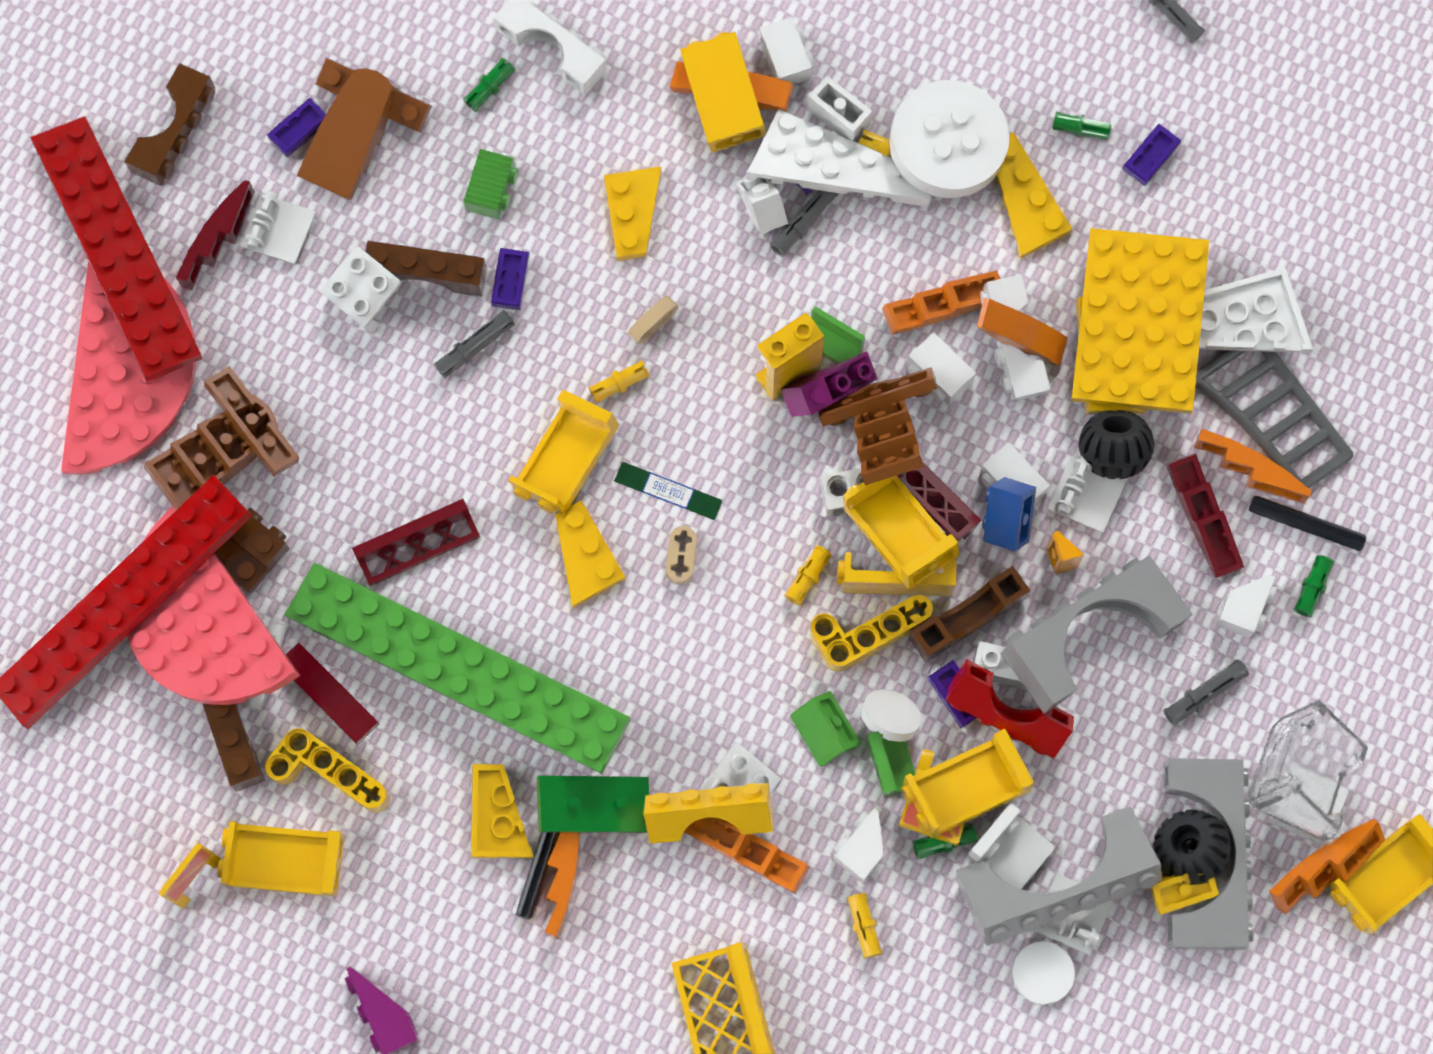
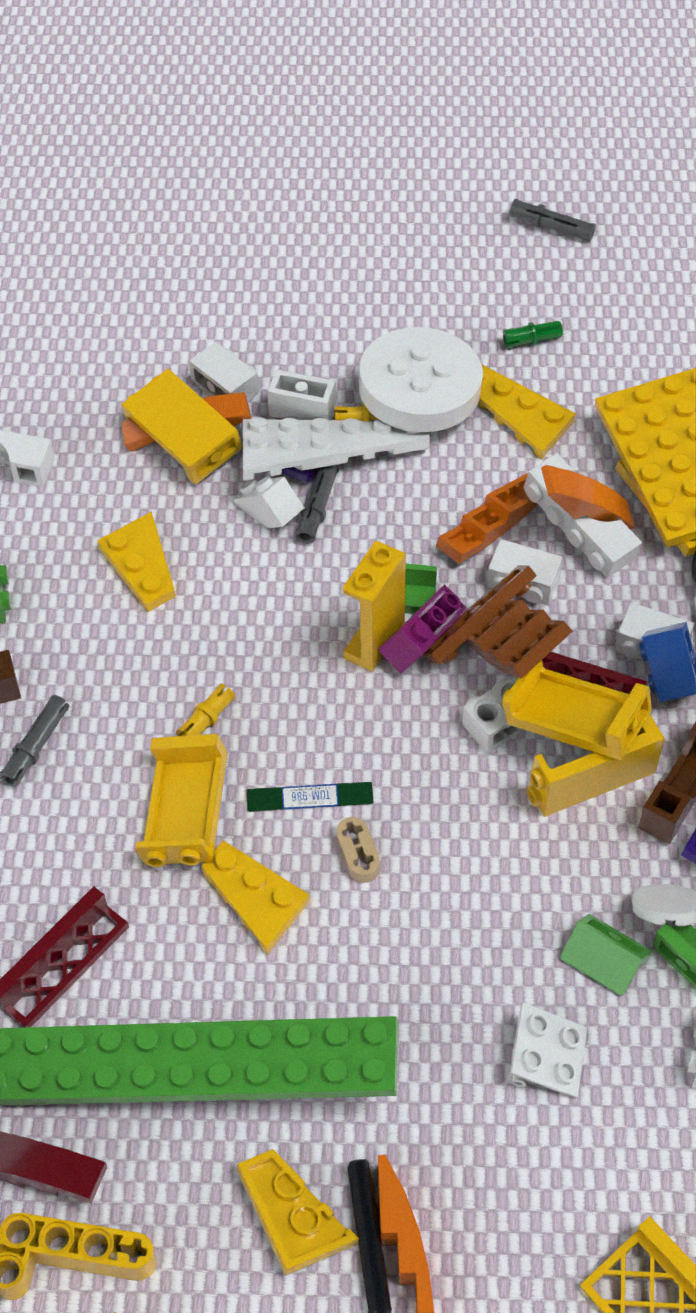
camera: 25 degrees left, 20 degrees down
(510, 279) = (44, 667): dark purple plate -> none
(591, 804) = (398, 1143): green piece -> none
(653, 319) = (212, 644): tan beam -> none
(743, 806) = (494, 1110): yellow arch -> none
(750, 852) = (593, 1117): orange slope -> none
(808, 575) = (501, 812): yellow pin -> none
(873, 628) = (600, 831): yellow beam -> none
(1151, 154) = (610, 331): dark purple plate -> none

